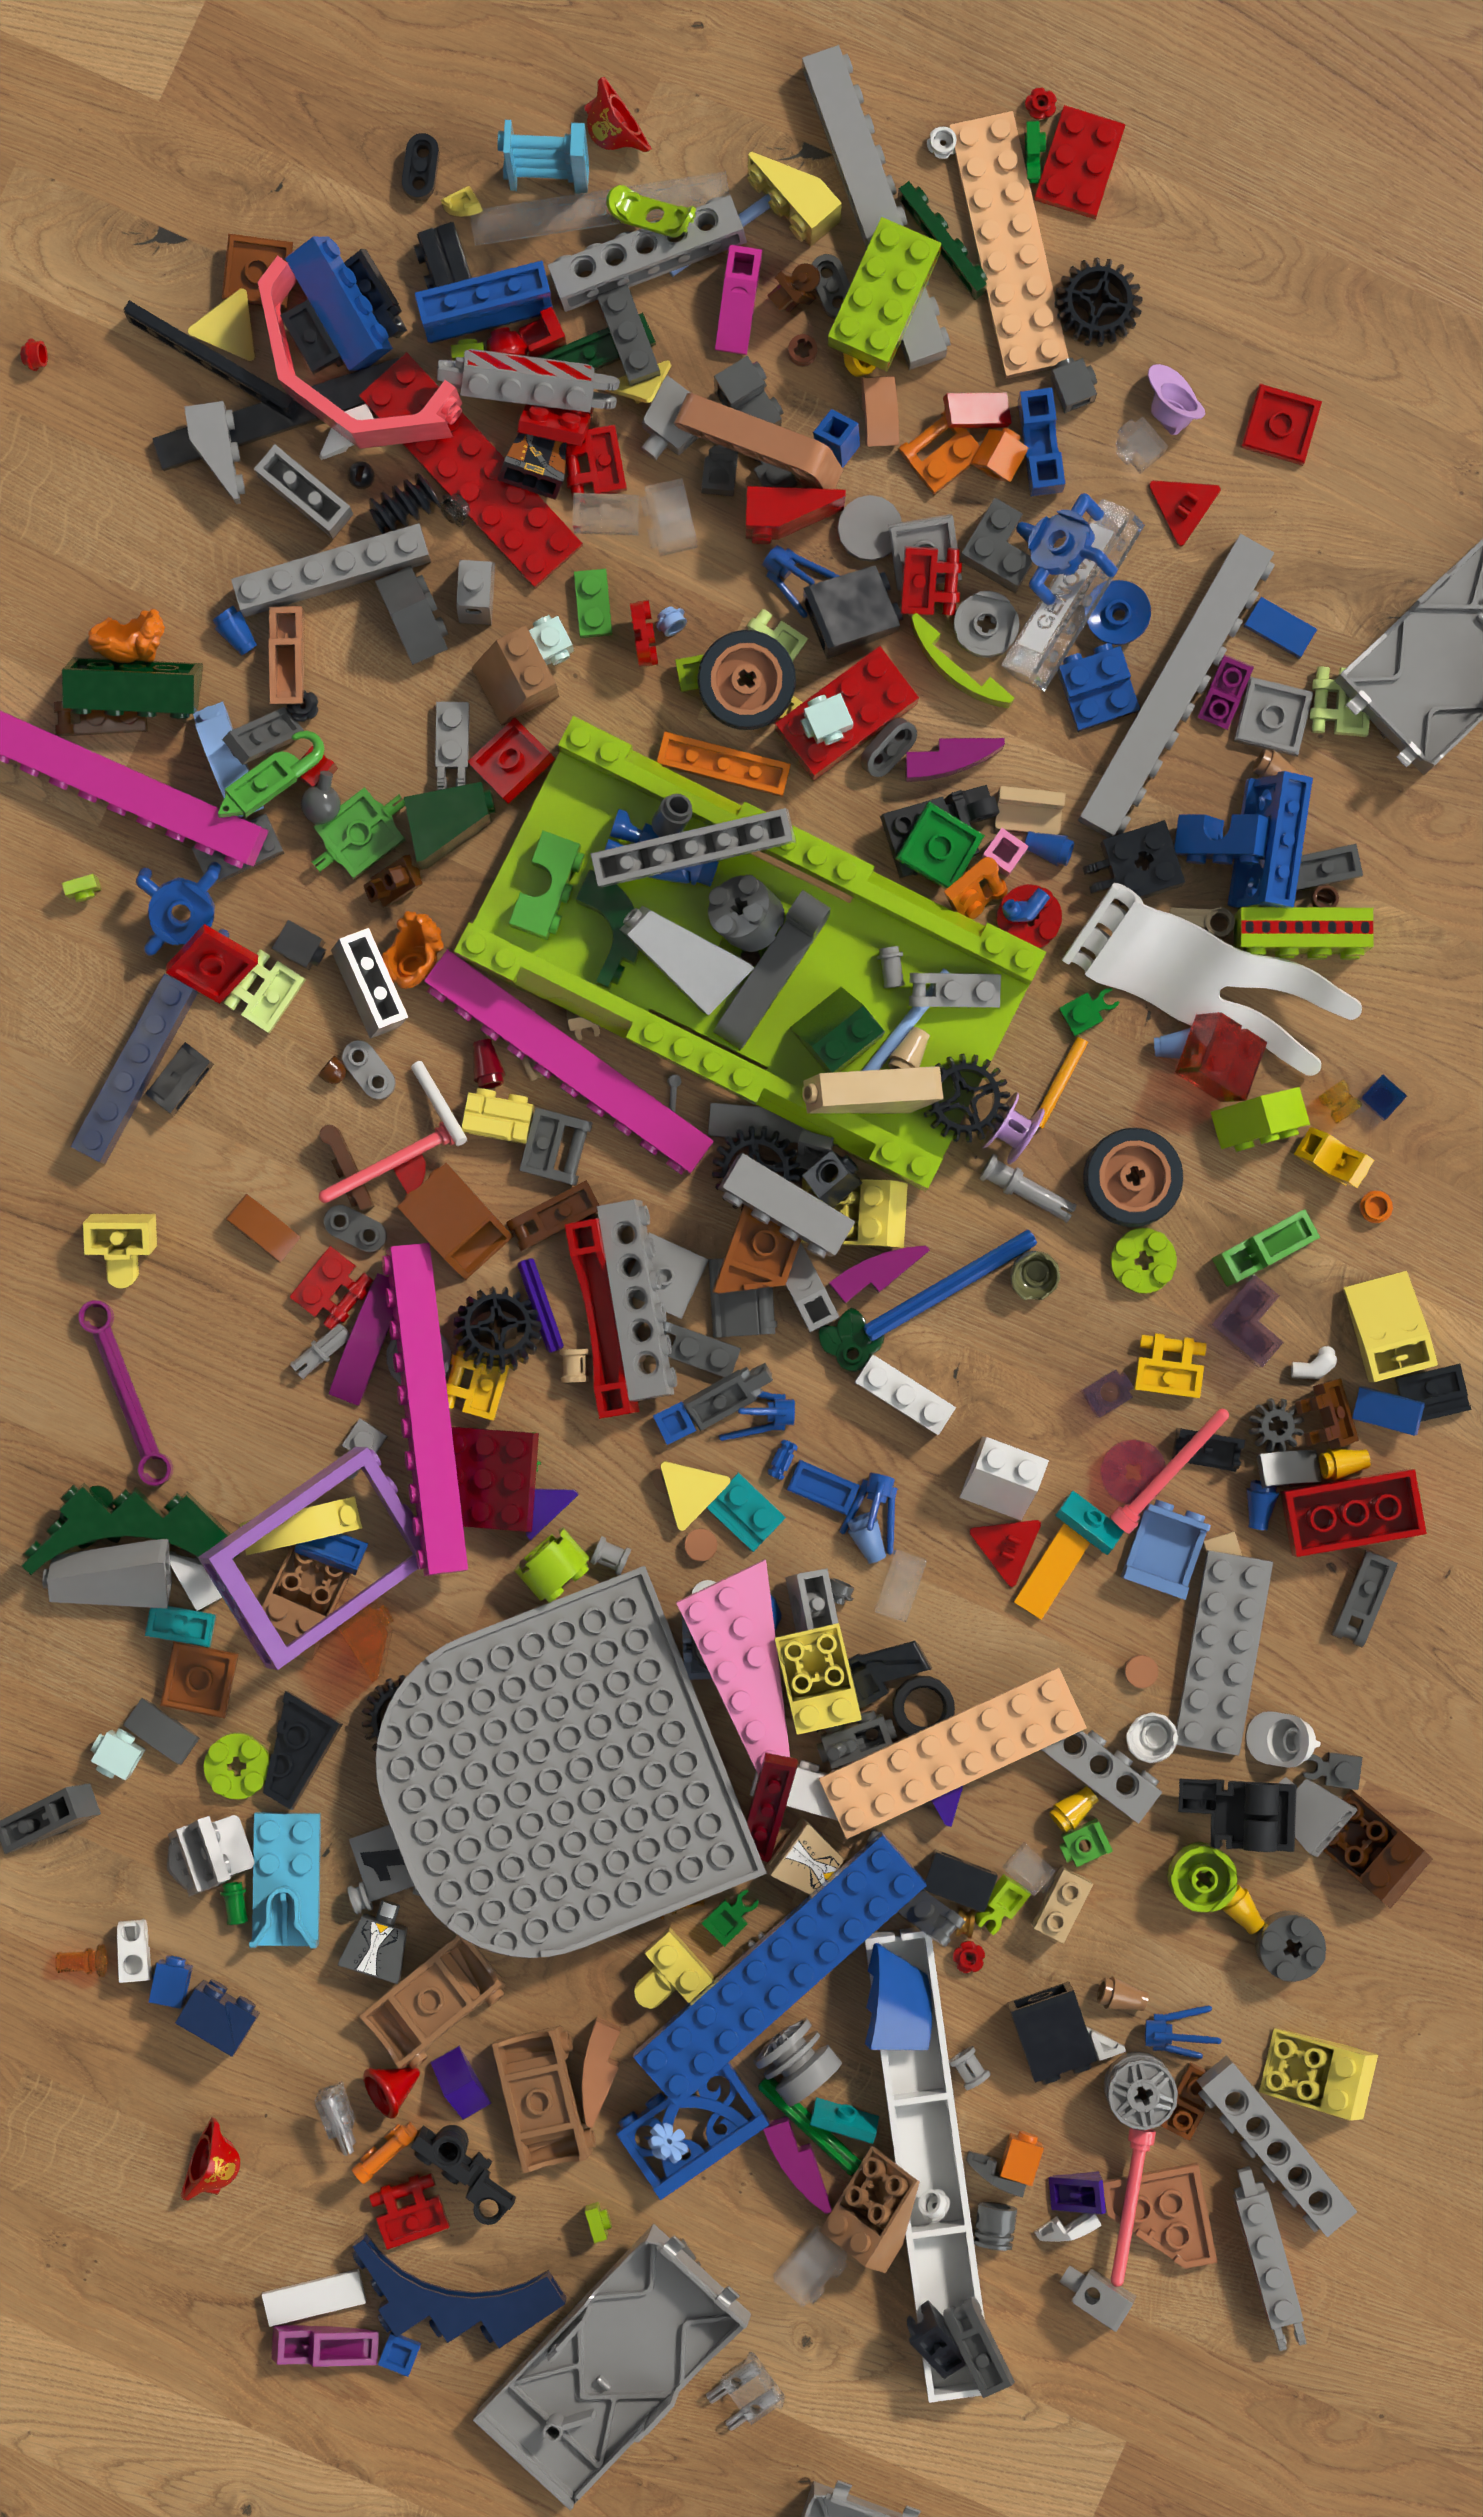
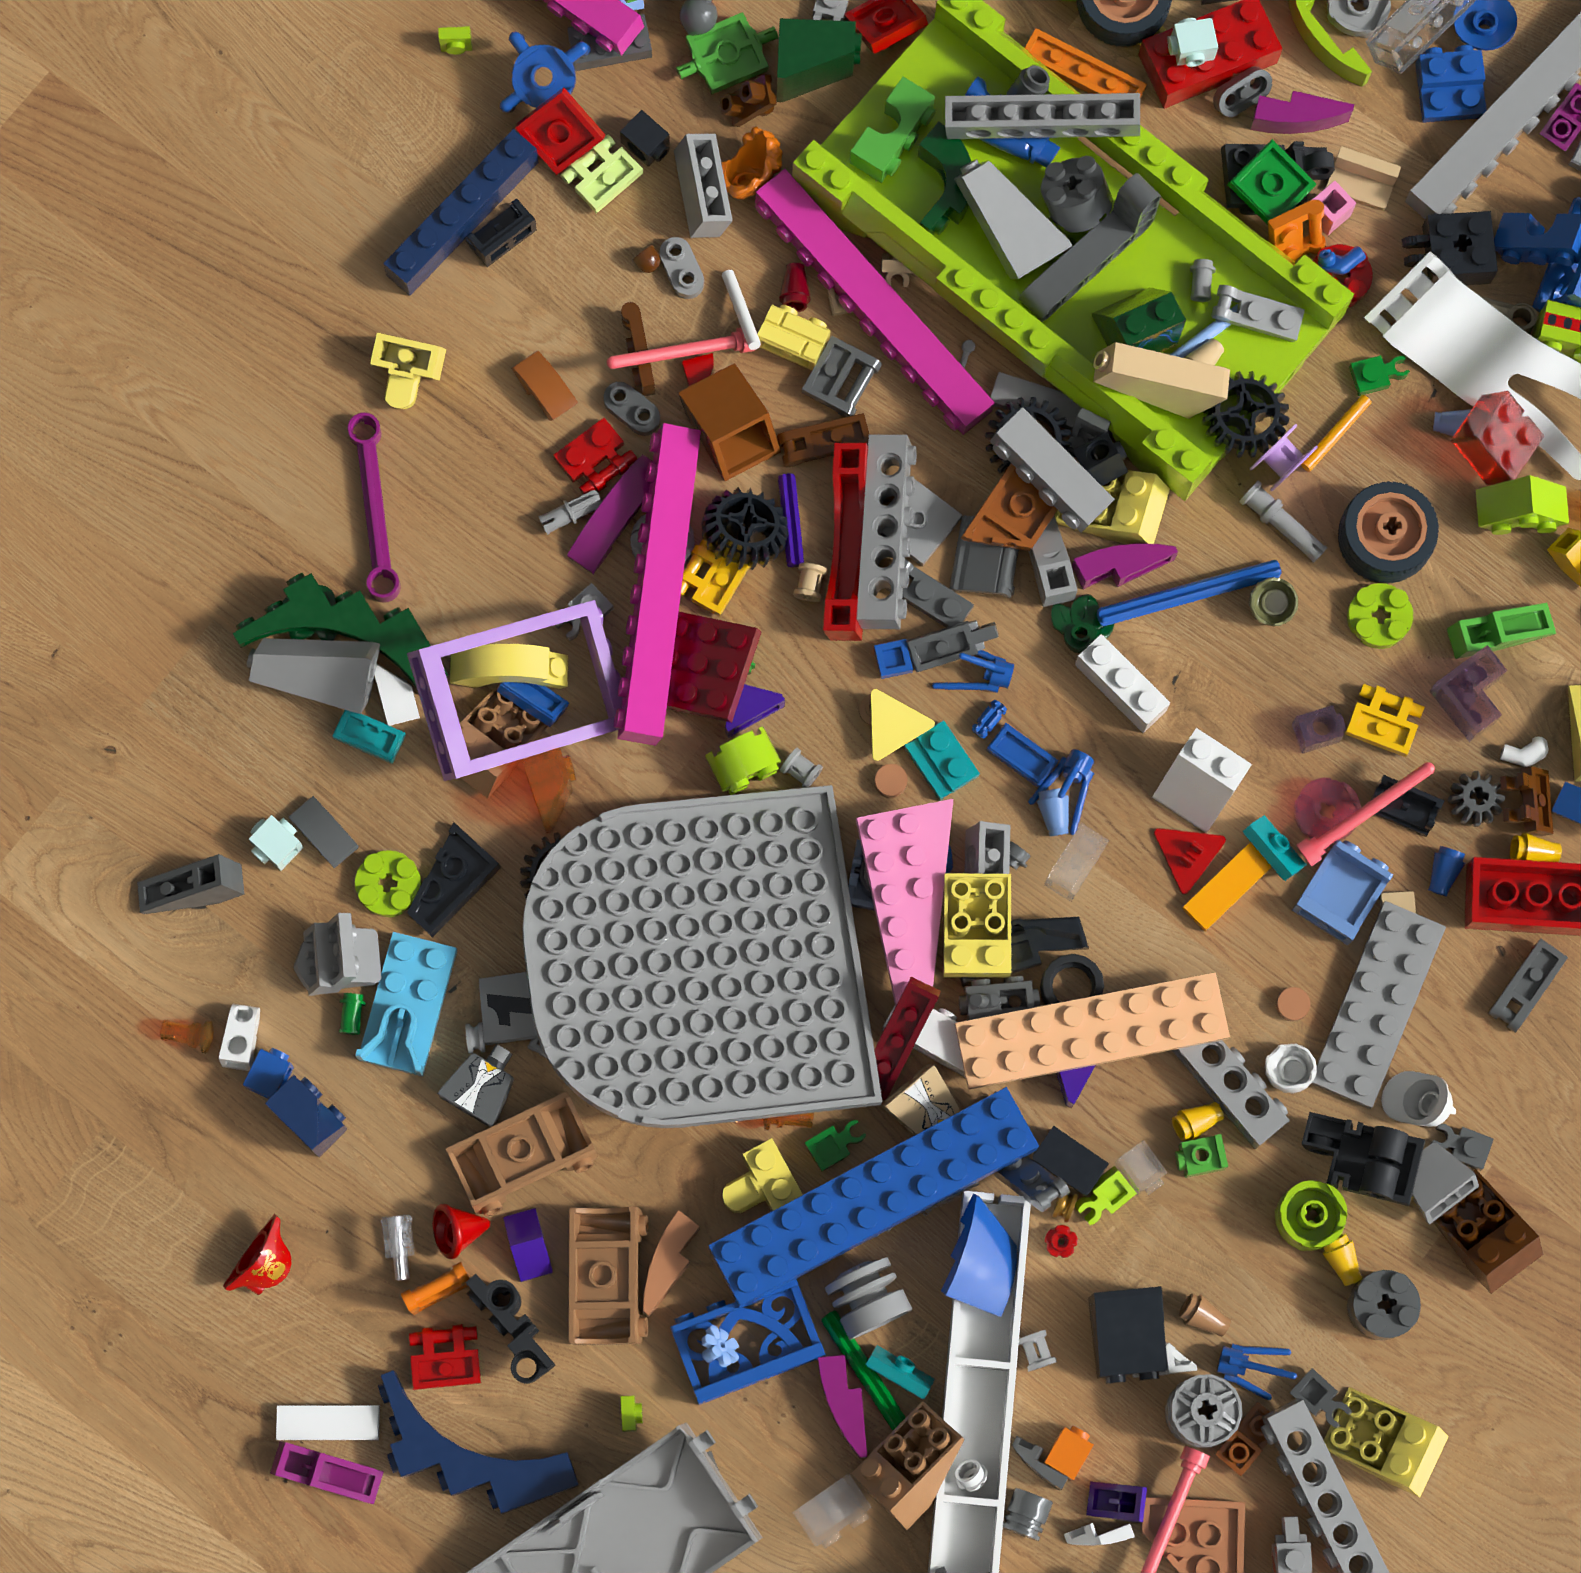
camera: 10 degrees right, 10 degrees down
(199, 1679) = (373, 791): dark orange plate -> none
(399, 2354) = (398, 1499): blue plate -> none
(1050, 847) = (1375, 216): blue cone -> none
(1062, 1904) = (1165, 1209): tan brick -> none
(1245, 2045) = (1318, 1396): none -> dark grey plate
(1289, 1468) = (1479, 839): dark grey slope -> none

